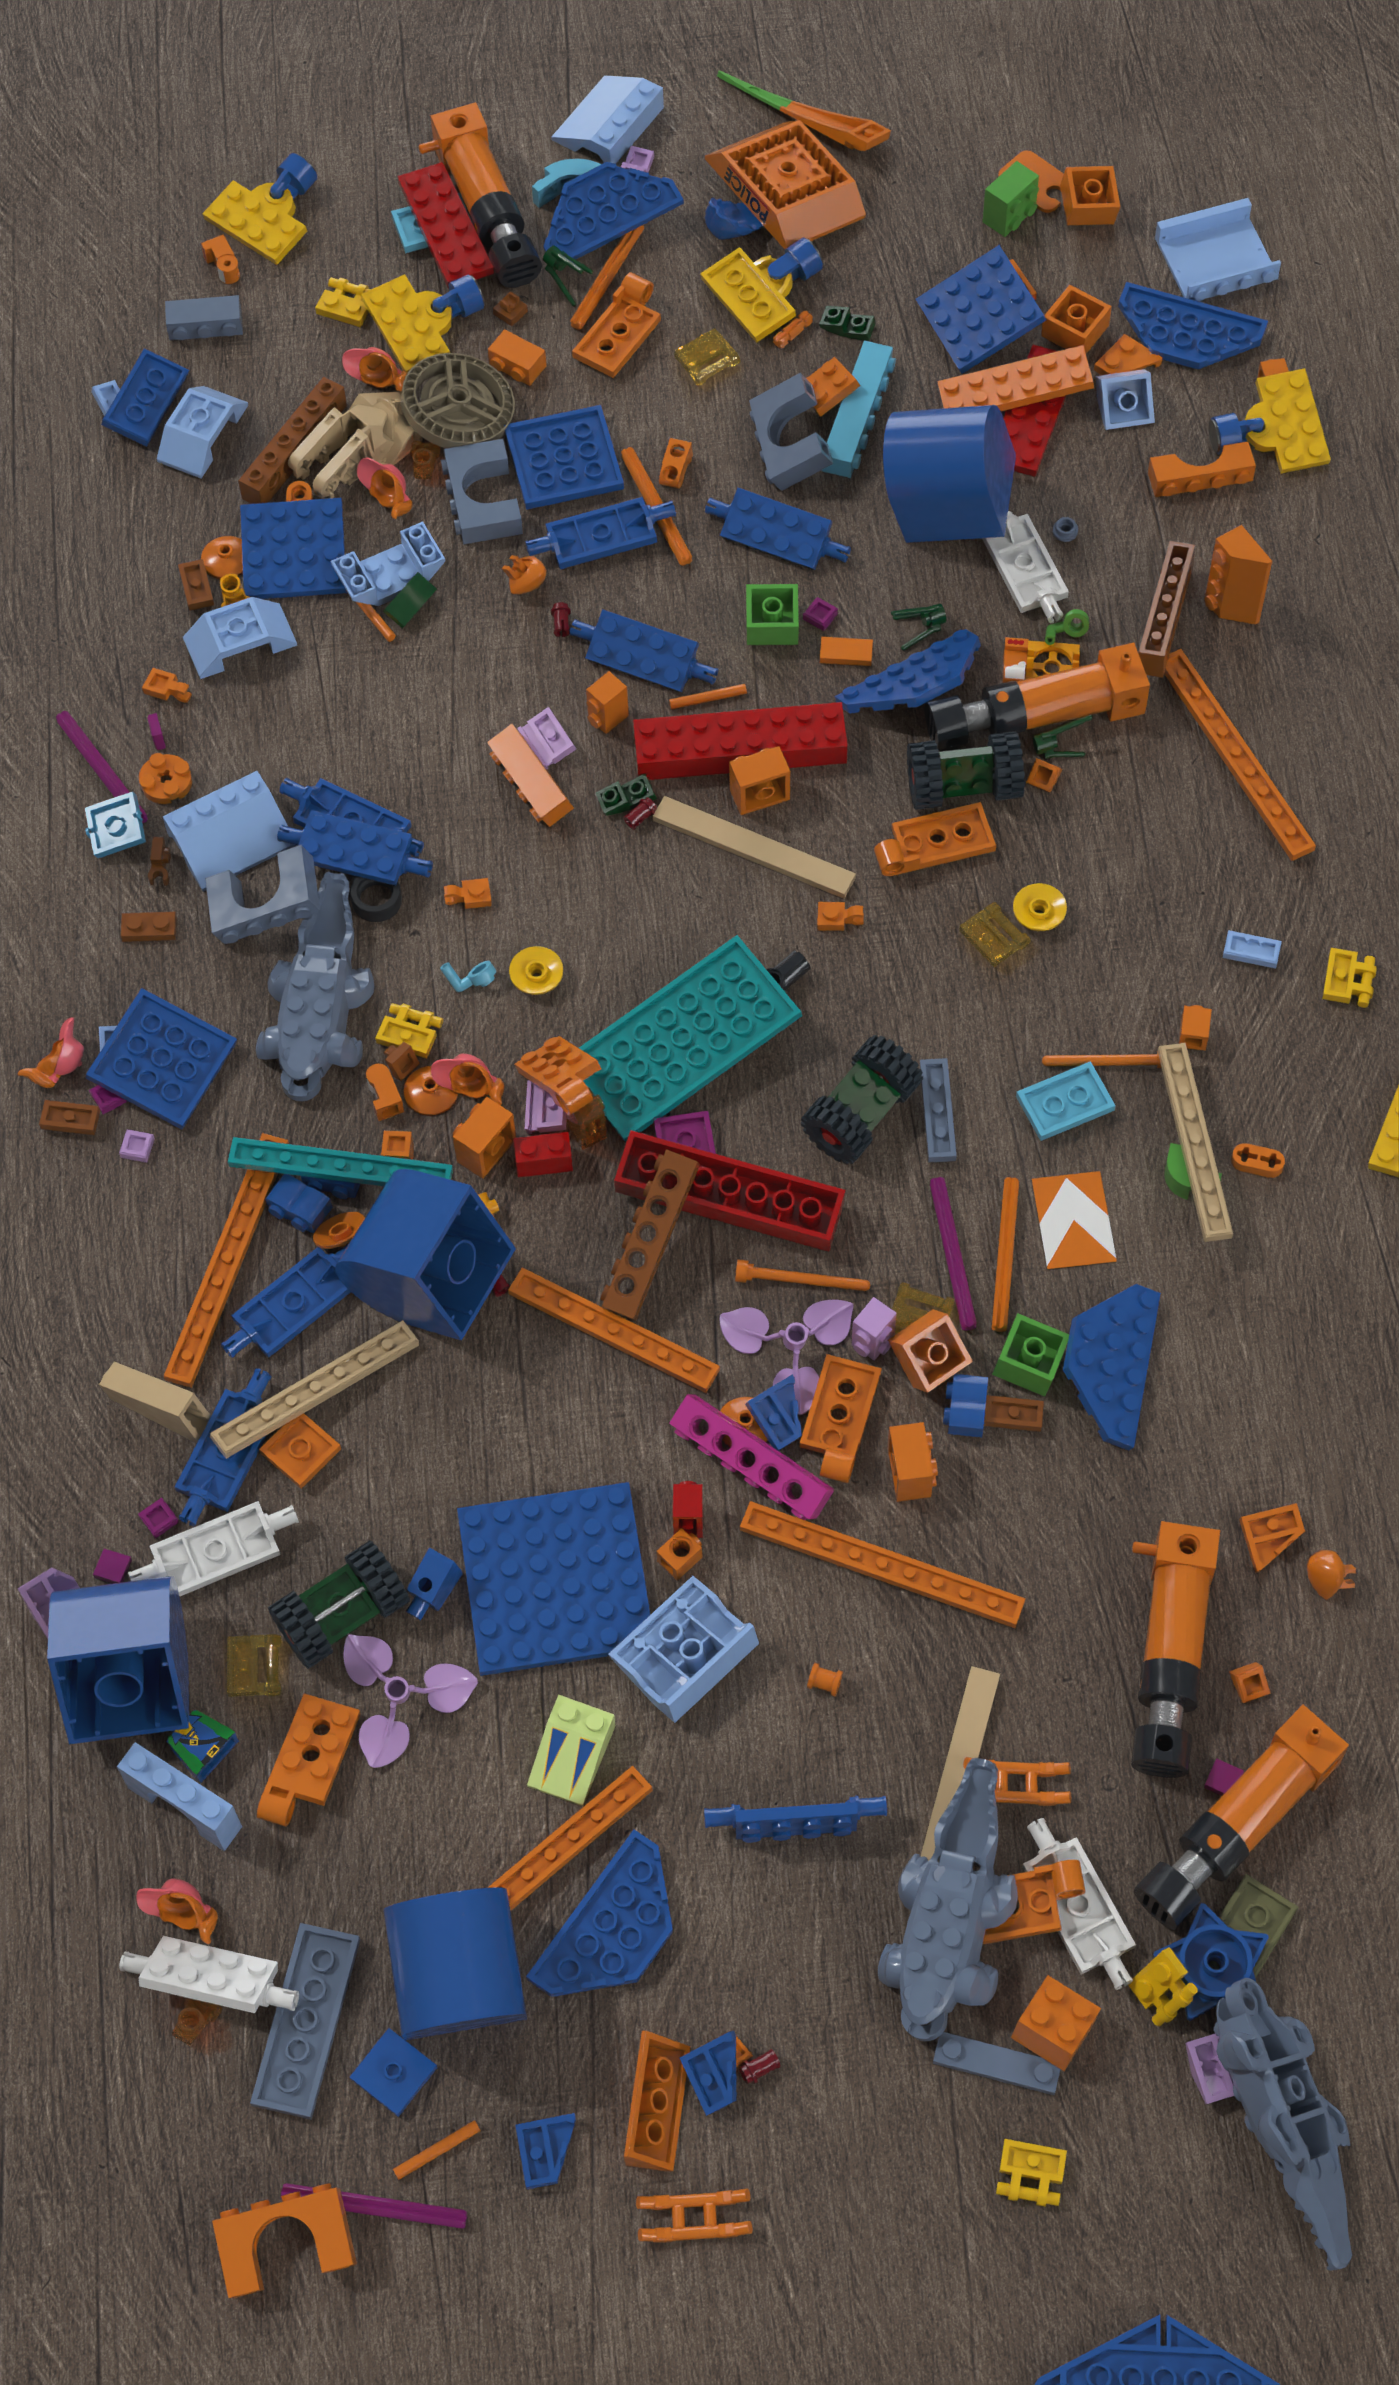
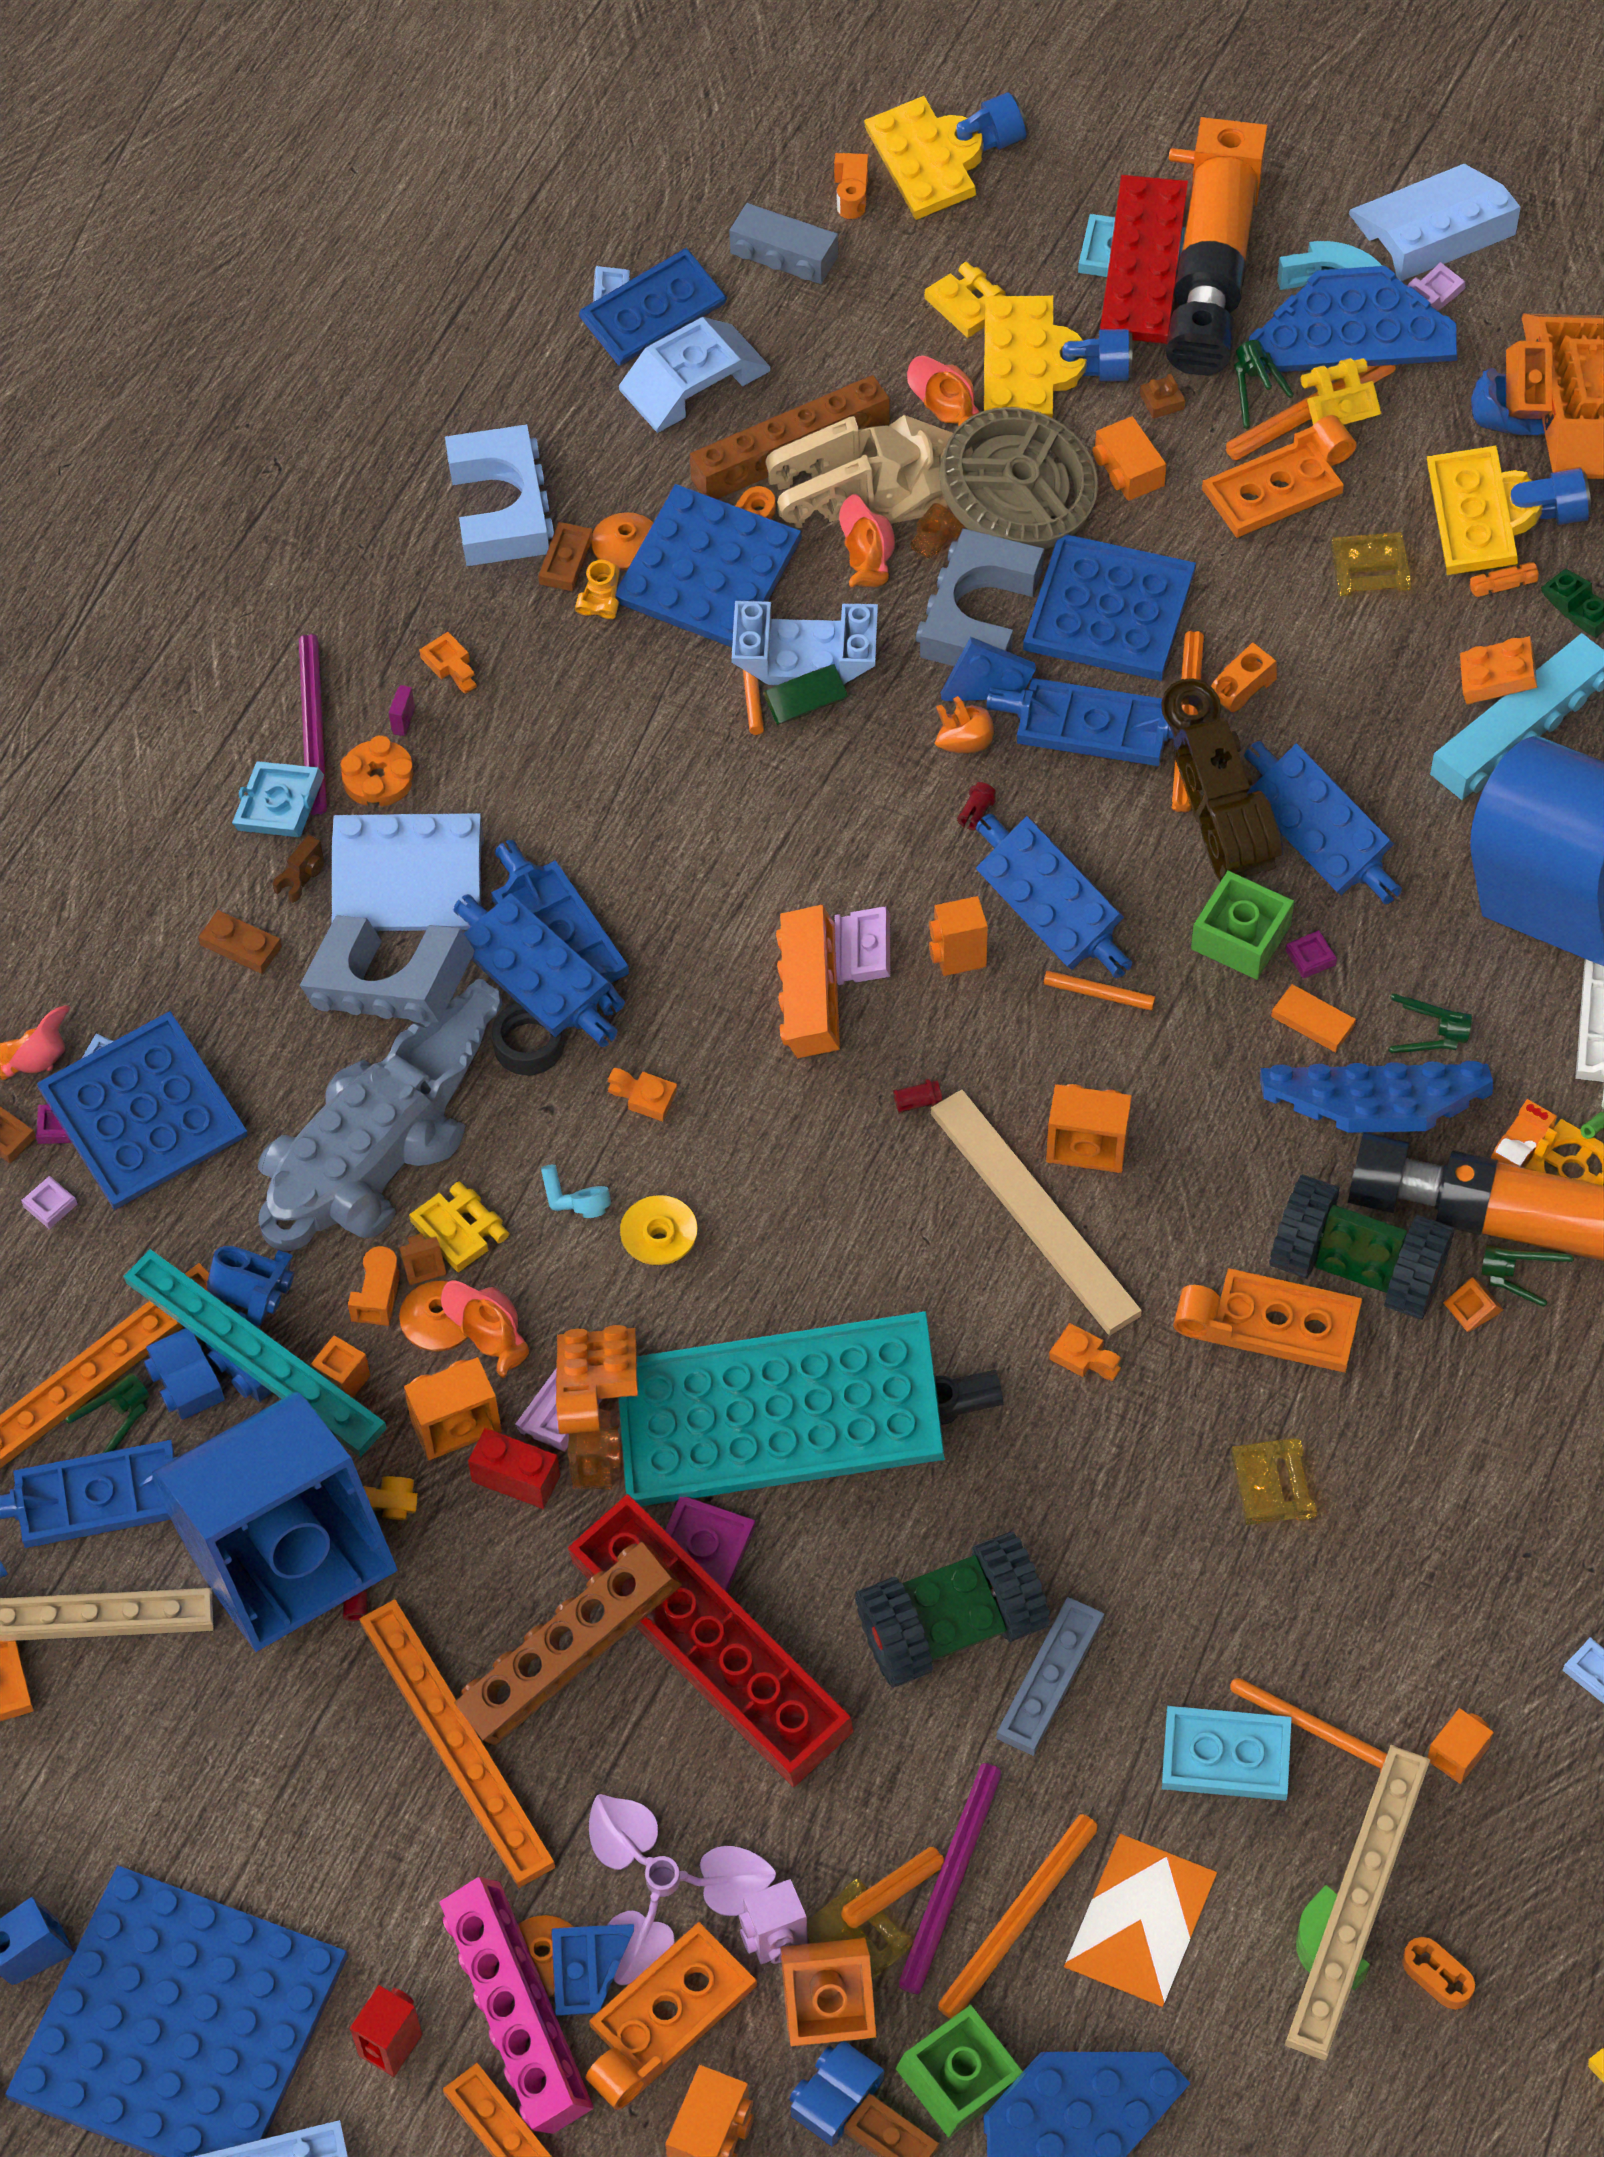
camera: 30 degrees right, 5 degrees down
(119, 537) = (508, 457): none -> light blue arch
(235, 630) = (574, 632): light blue slope -> none
(269, 1236) = (123, 1397): none -> dark green plant
(305, 1125) = (250, 1280): none -> blue pin
(338, 1230) = (200, 1428): orange dish -> none
(513, 531) = (986, 667): none -> blue wing
(621, 798) = (908, 1066): dark green slope -> none
(632, 260) = (1348, 404): none -> yellow plate
(677, 1565) = (333, 2069): orange brick -> none
(711, 740) = (1053, 1044): red brick -> none
(731, 555) = (1234, 825): none -> dark brown brick
(739, 195) = (1529, 379): none -> orange brick
(747, 1271) = (669, 1756): orange piece -> none
(770, 415) = (1400, 673): sand blue arch -> none
(925, 1275) = (892, 1887): none -> orange axle
(1042, 898) = (1354, 1461): yellow dish -> none

